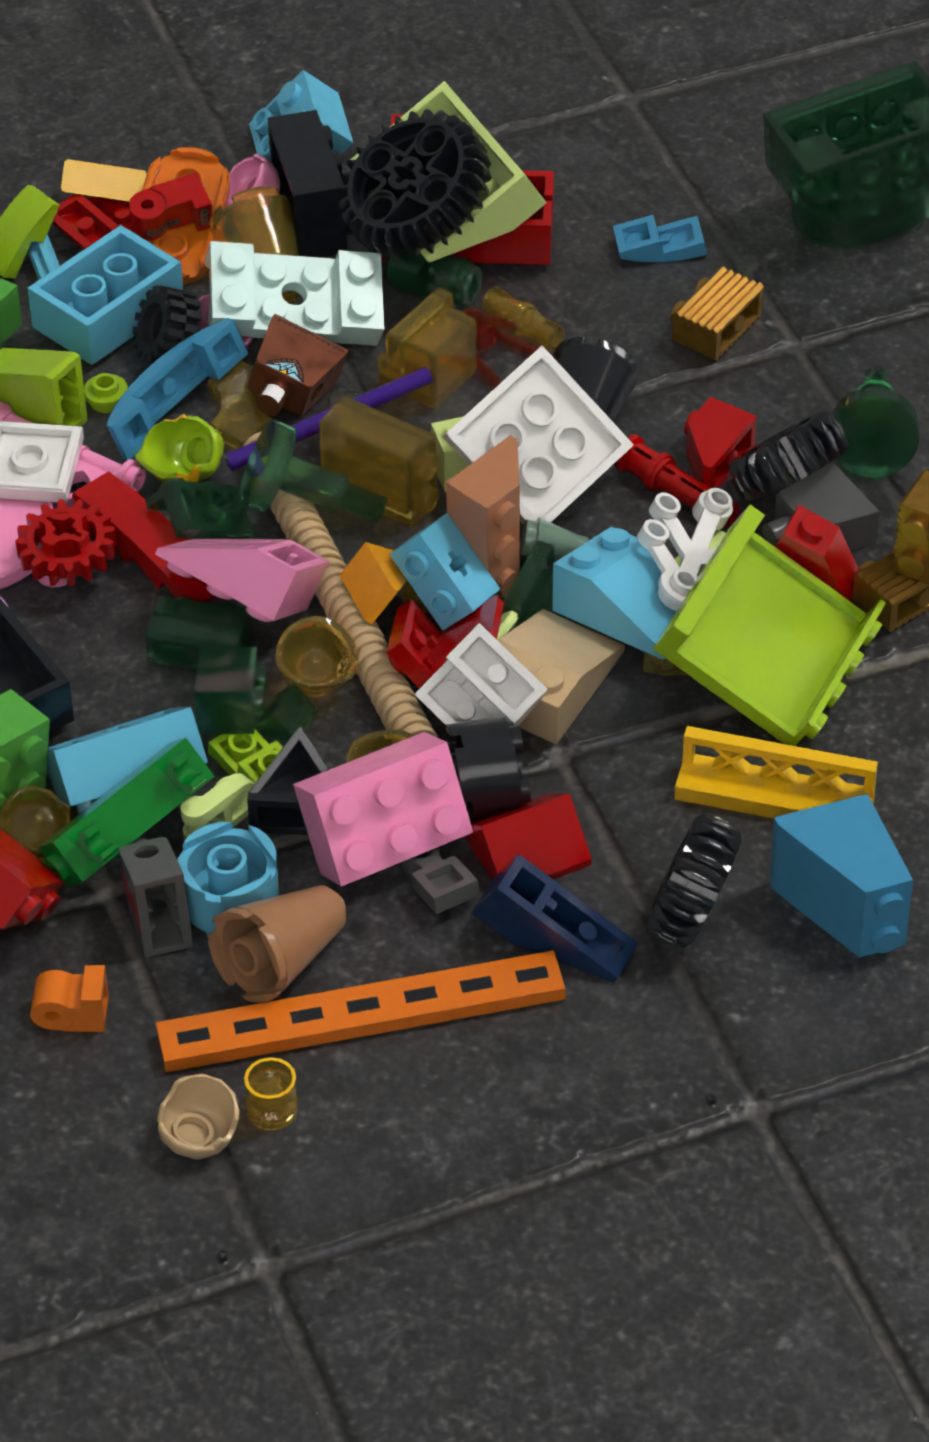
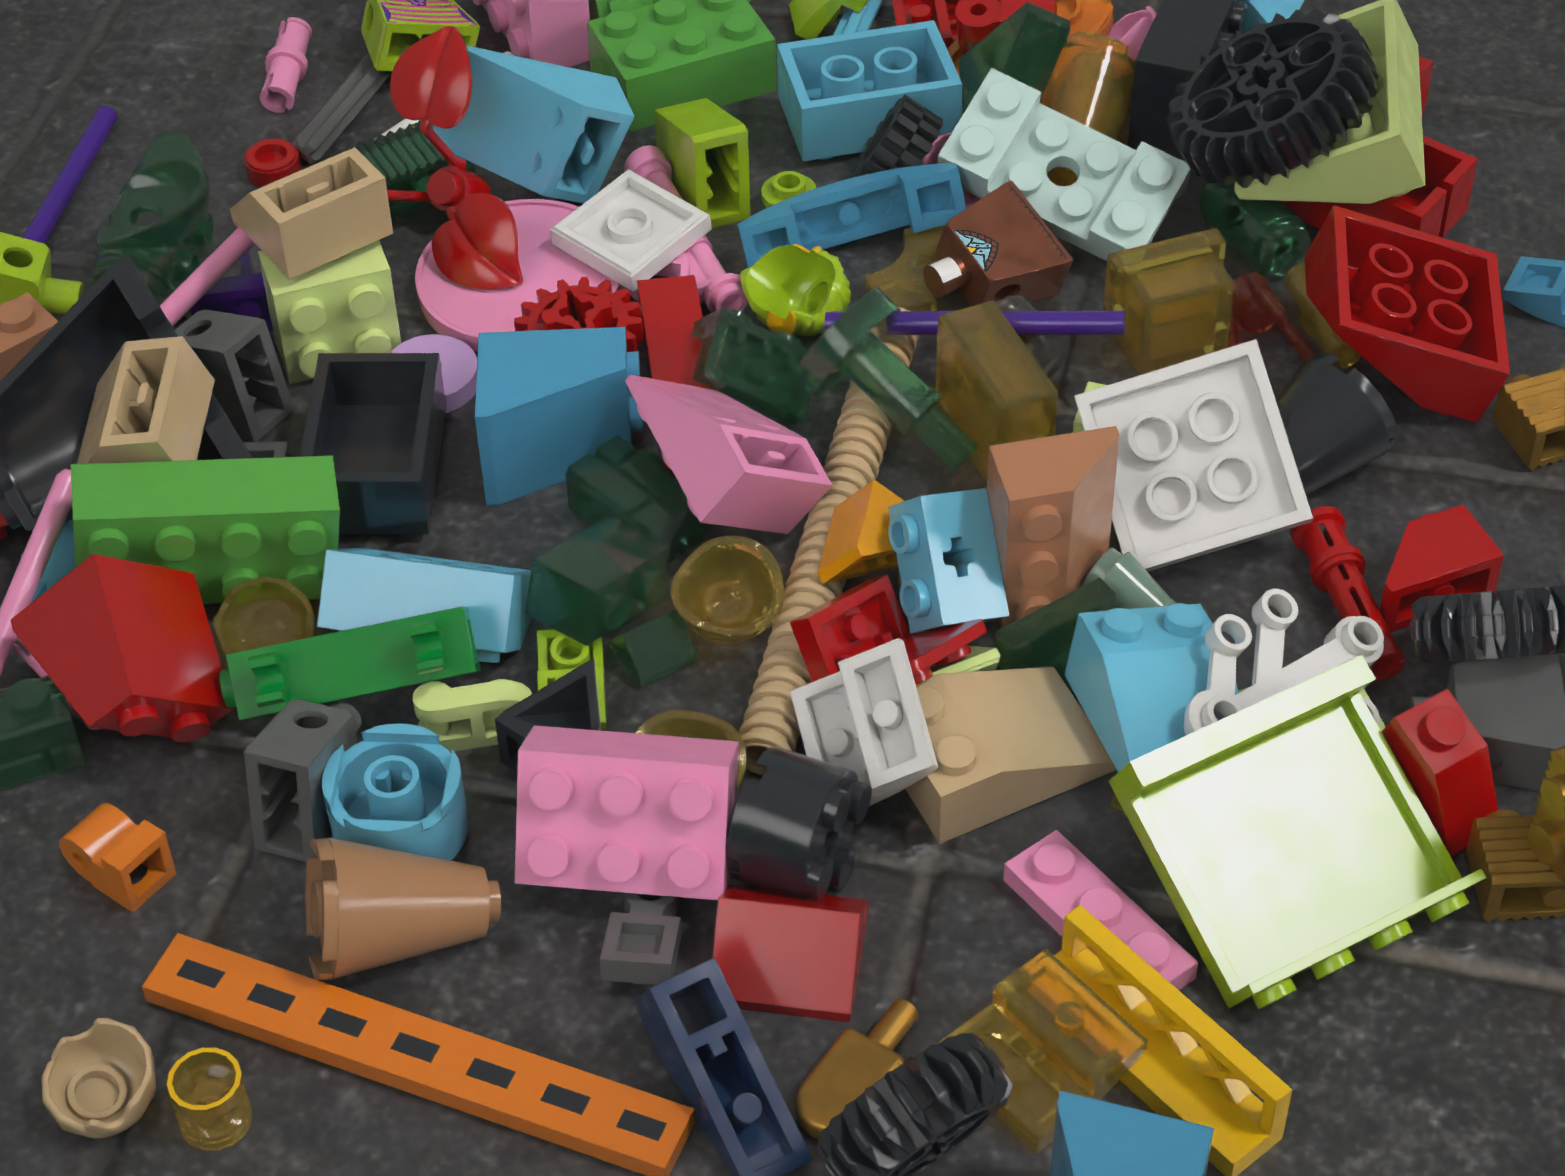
camera: 35 degrees right, 0 degrees up
(95, 598) = (549, 403): none -> dark azure slope
(206, 219) = (1020, 47): none -> clear green slope
(590, 283) = (1413, 309): none -> red slope
(623, 888) = (852, 1066): none -> pearl gold piece
(662, 731) = (1058, 878): none -> bright pink plate
(729, 795) = (1052, 1040): none -> clear yellow slope

